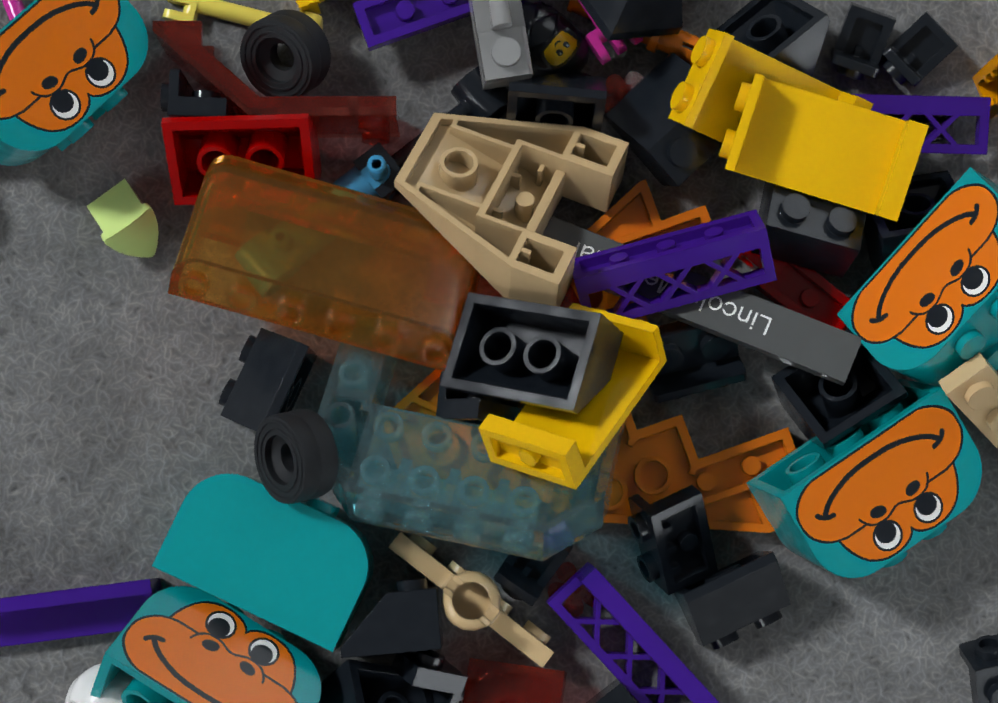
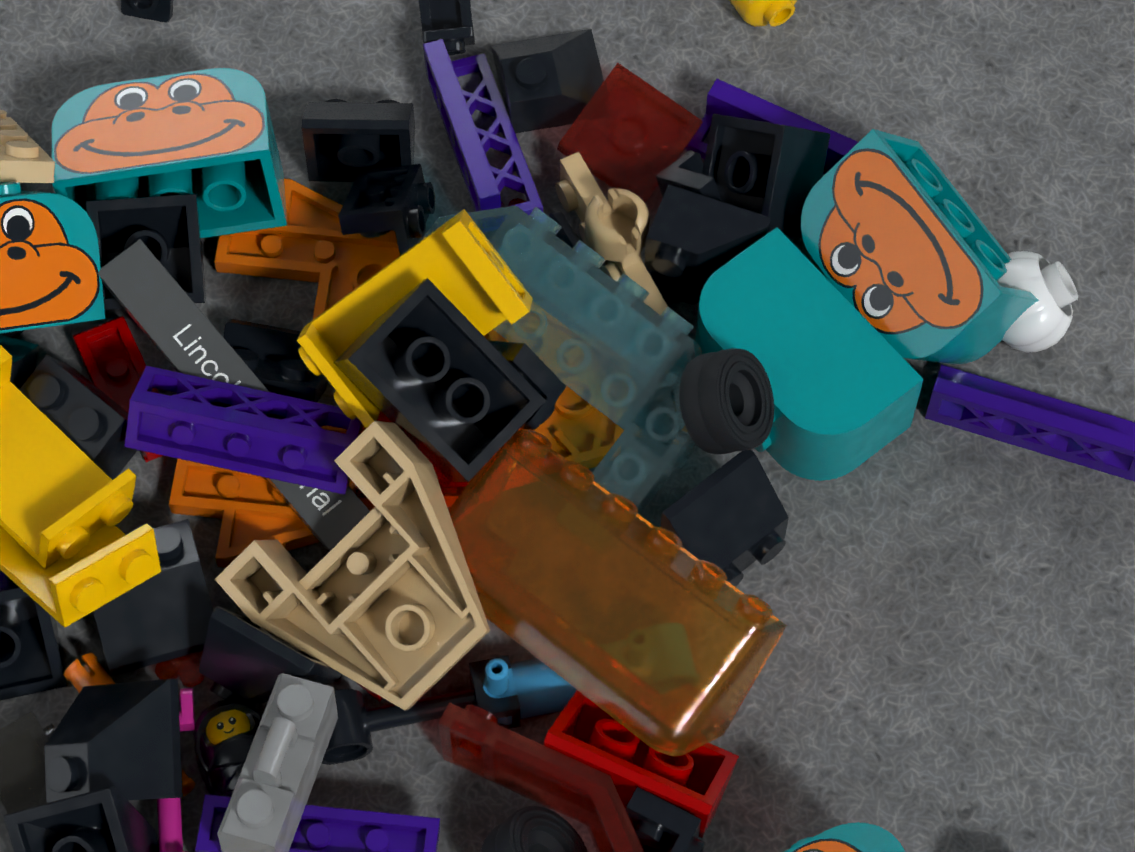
camera: 150 degrees left, 20 degrees down
(126, 221) = (802, 780): yellowish green tile -> none

